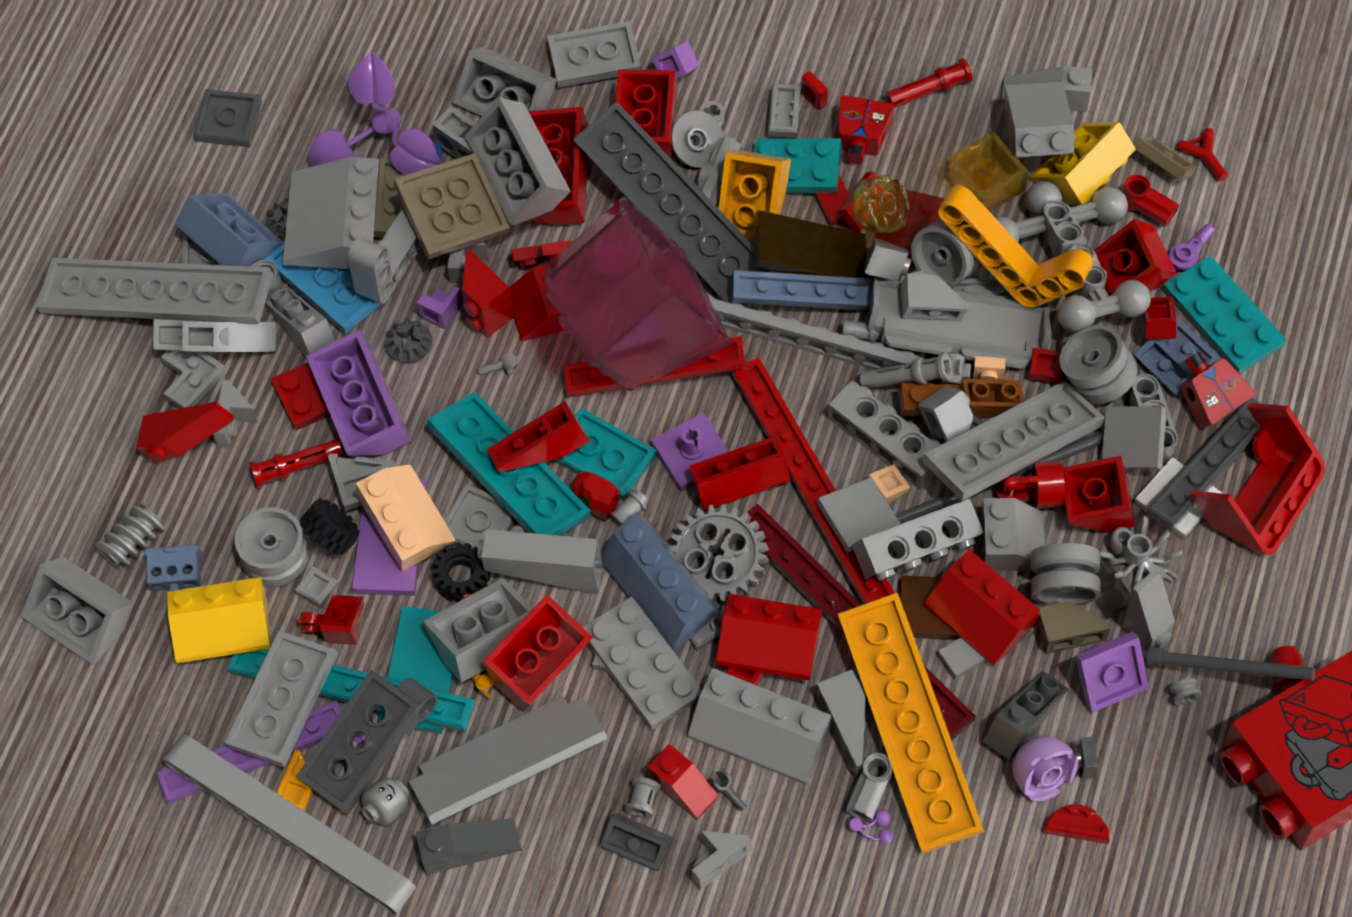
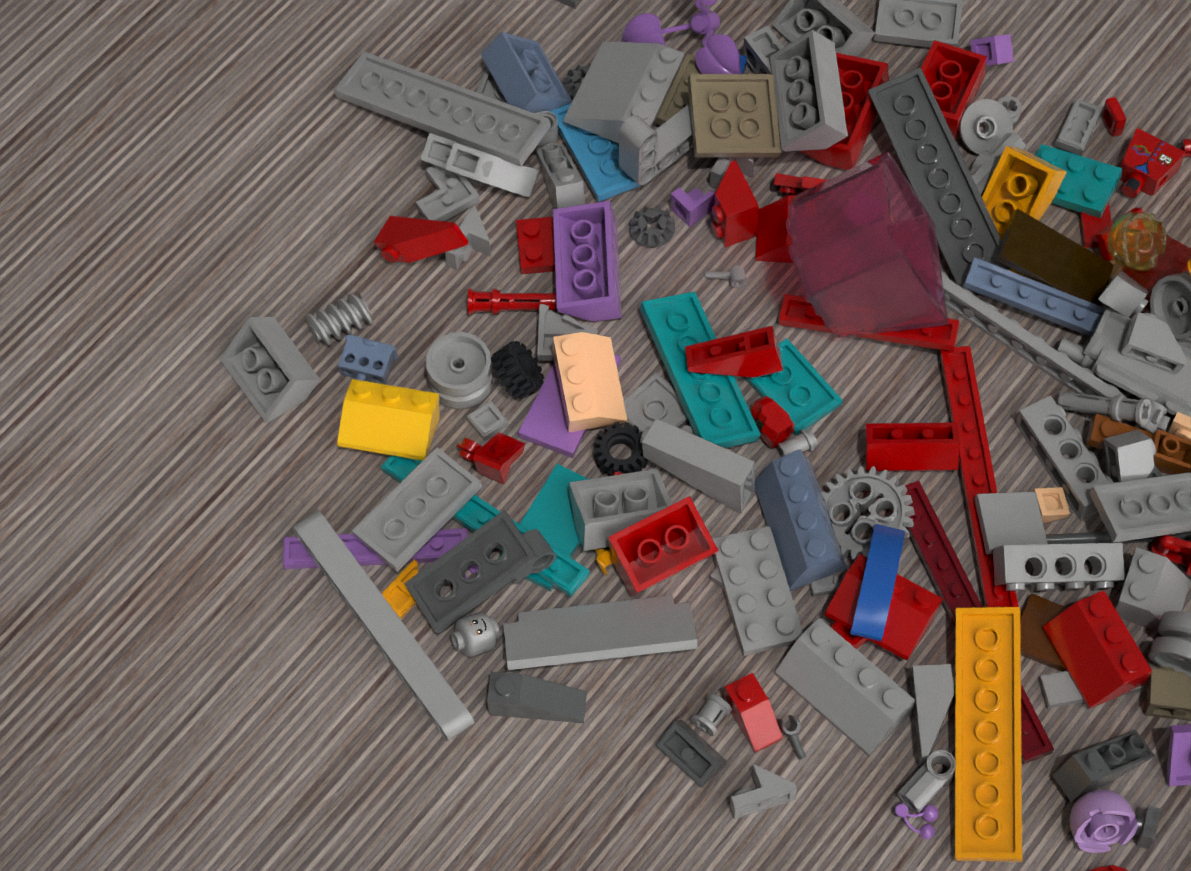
camera: 20 degrees right, 0 degrees up
(687, 445) = (872, 404): medium lavender tile -> none
(757, 615) = (878, 582): none -> blue slope

